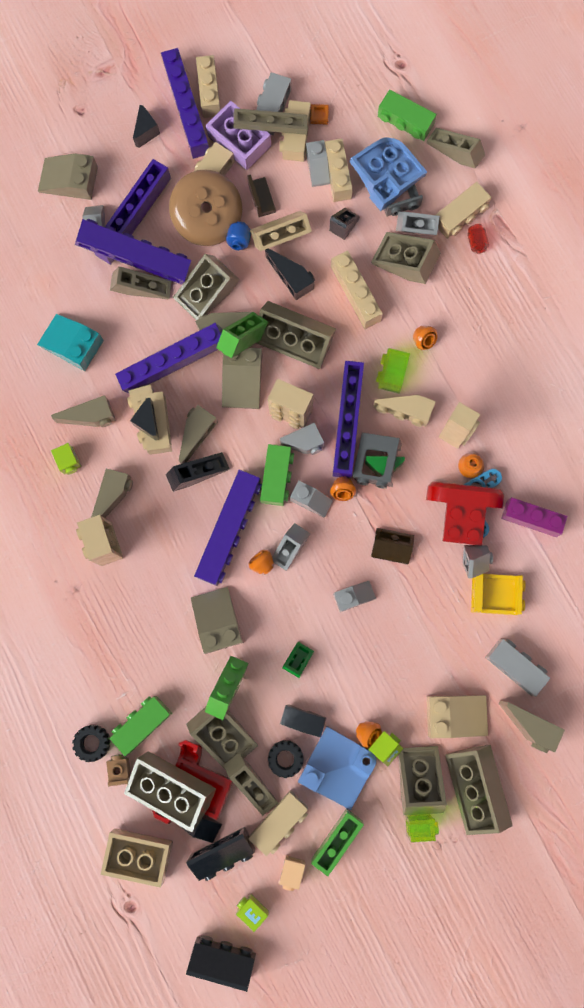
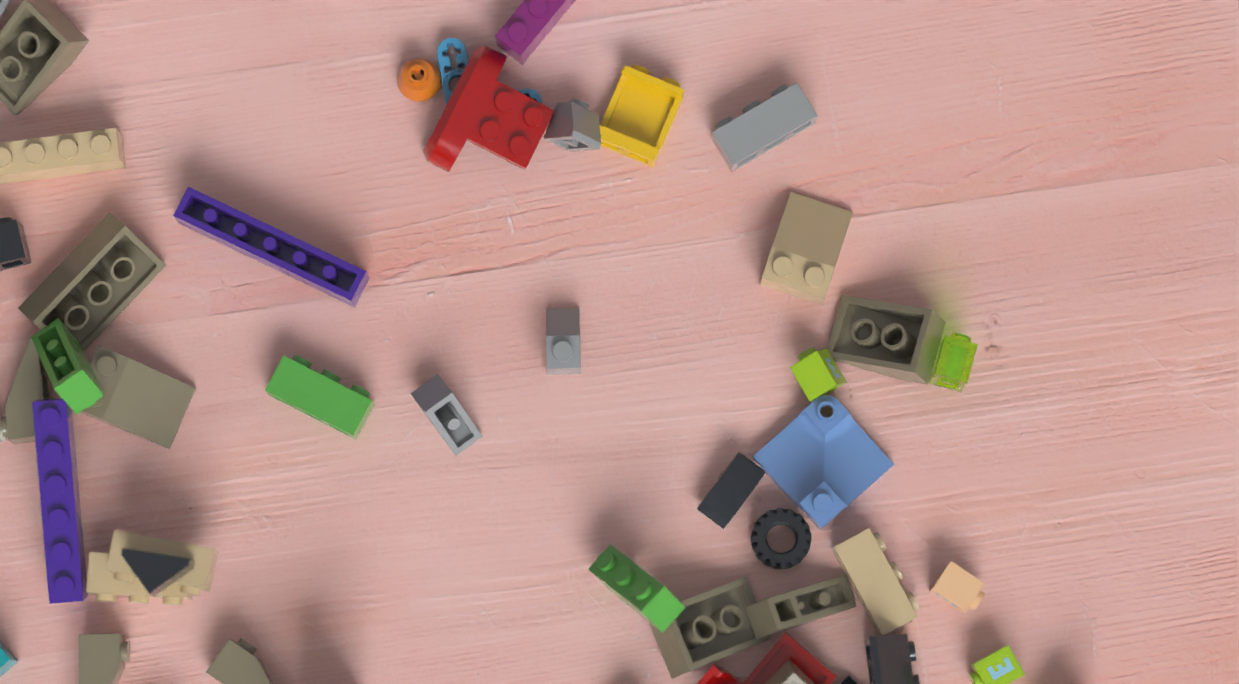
camera: 75 degrees left, 0 degrees up
(196, 471) = (265, 525): black slope -> none
(197, 428) = (191, 499): dark tan slope -> none
(216, 620) = (523, 575): dark tan slope -> none
(227, 528) = (378, 504): dark purple brick -> none
(261, 562) = (455, 469): orange cone -> none
(290, 404) = (214, 329): tan brick -> none
(298, 659) = (633, 465): green slope -> none
(304, 440) = (279, 330): light grey slope -> none
(310, 499) = (380, 354): light grey slope -> none
(337, 842) = (933, 499): bright green brick -> none
(343, 489) = (383, 296): orange cone -> none
(368, 733) = (785, 394): orange cone -> none
(378, 464) = (369, 218): green slope -> none
(380, 443) = (332, 208): dark grey window -> none
(392, 546) = (504, 250): dark brown panel -> none
(393, 371) = (216, 145): clear neon green brick -> none
(412, 408) = (289, 140): tan slope -> none
(425, 337) = (179, 74): orange cone -> none
(460, 426) = (353, 72): tan brick -> none
(479, 790) = (929, 256): dark tan slope -> none
(540, 732) = (866, 135): dark tan slope -> none

